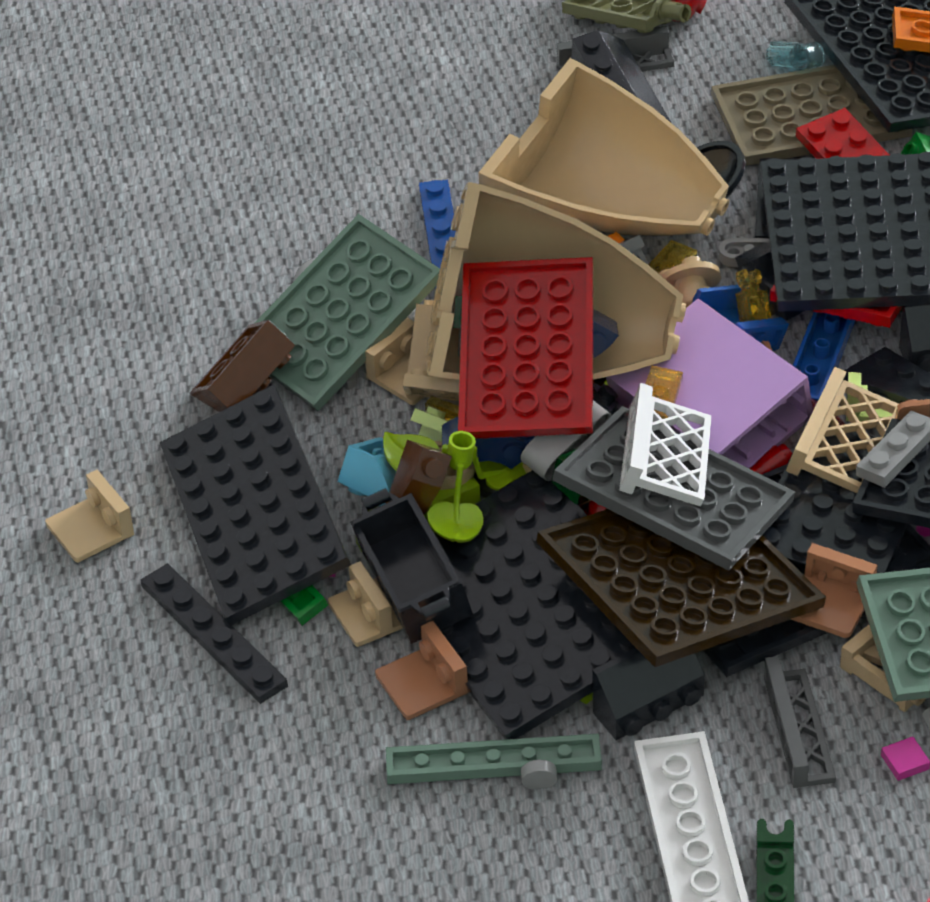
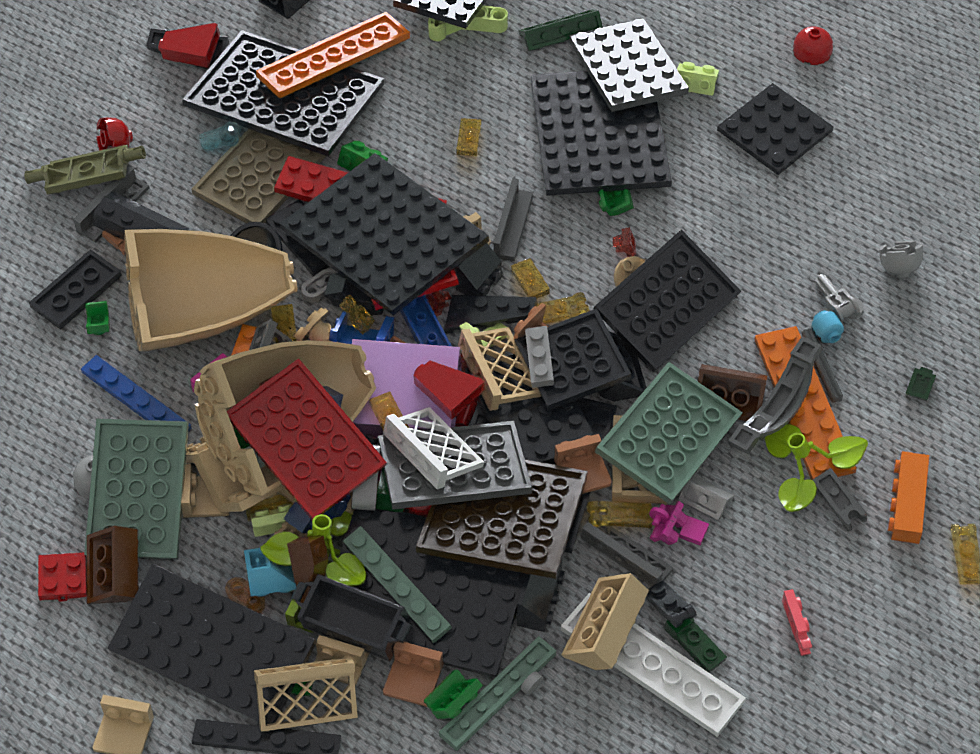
camera: 45 degrees left, 10 degrees up
(190, 351) = (62, 576): none -> red plate
(293, 579) = (302, 673): none -> tan fence
(337, 504) = (242, 595): none -> clear orange plate
(437, 720) = (451, 695): none -> green bracket
(481, 150) = (97, 318): none -> green bracket
(488, 110) = (74, 288): none -> black plate
(493, 571) = (397, 584): none -> sand green plate
(685, 768) = (606, 621): none -> tan slope
(749, 406) = (448, 387): none -> red slope
(782, 803) = (670, 604): none -> black plate
(831, 679) = (619, 514): none -> clear yellow plate
(861, 342) = (438, 301): none -> clear red tile
(864, 732) = (664, 520): none -> dark pink hips

